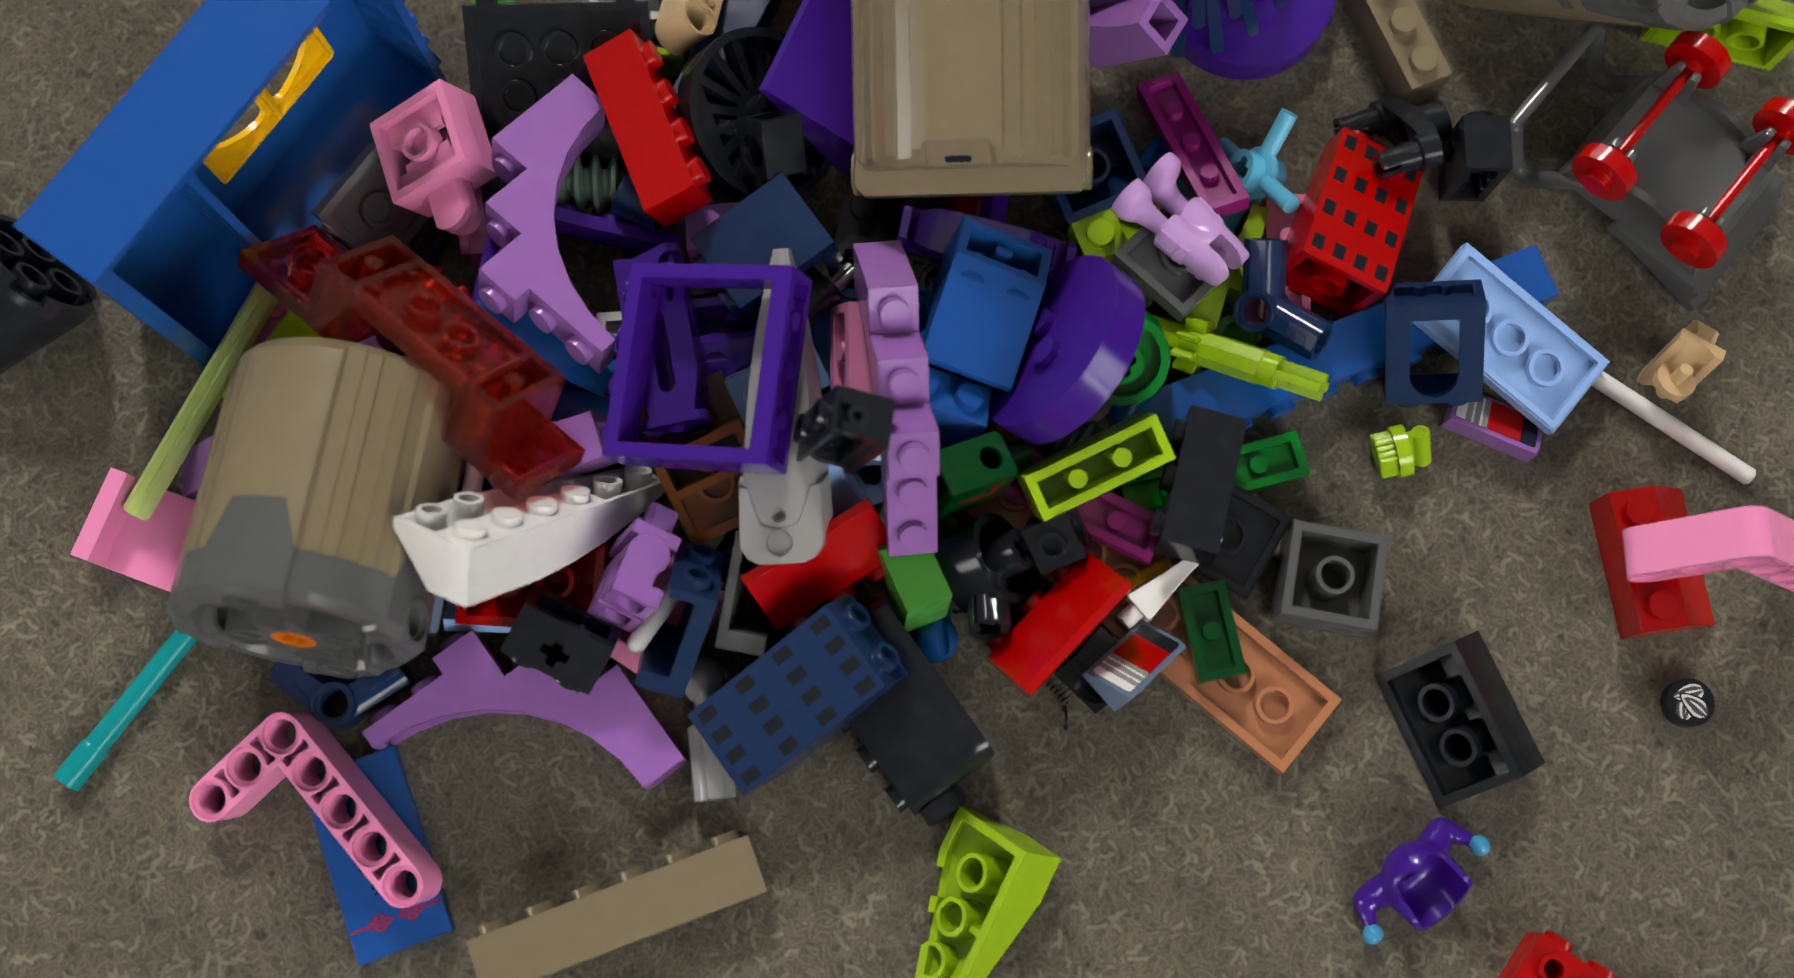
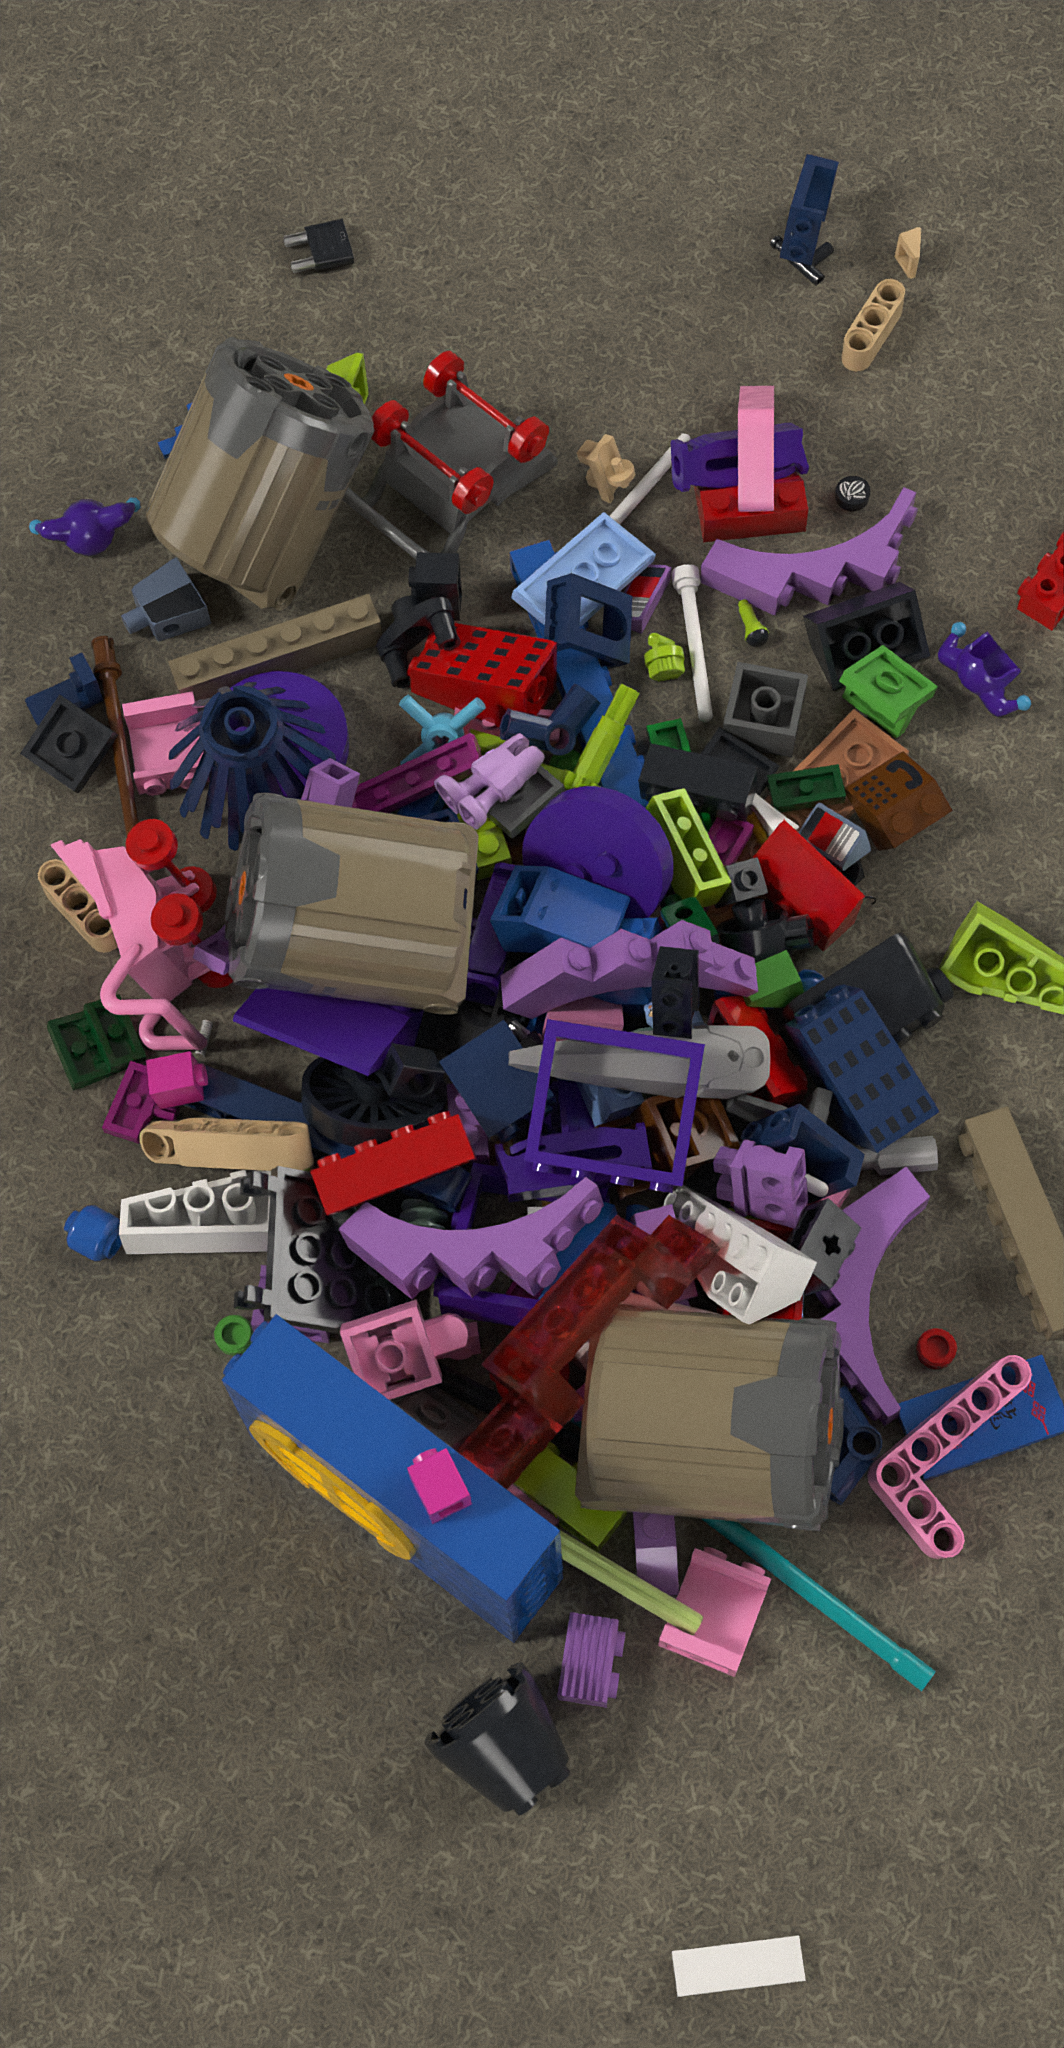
camera: 85 degrees left, 10 degrees down
(104, 396) = (589, 1660): none -> medium lavender brick
(139, 134) = (438, 1484): none -> dark pink brick
(465, 799) = (936, 1348): none -> red tile
(1202, 754) = (897, 801): none -> reddish brown slope
(1373, 742) = (886, 689): none -> bright green bracket
(1451, 572) = (755, 633): none -> lime piece
(1521, 479) = (686, 582): none -> white piece
(1577, 715) = (772, 578): none -> medium lavender arch
(1701, 483) = (713, 458): none -> dark purple piece

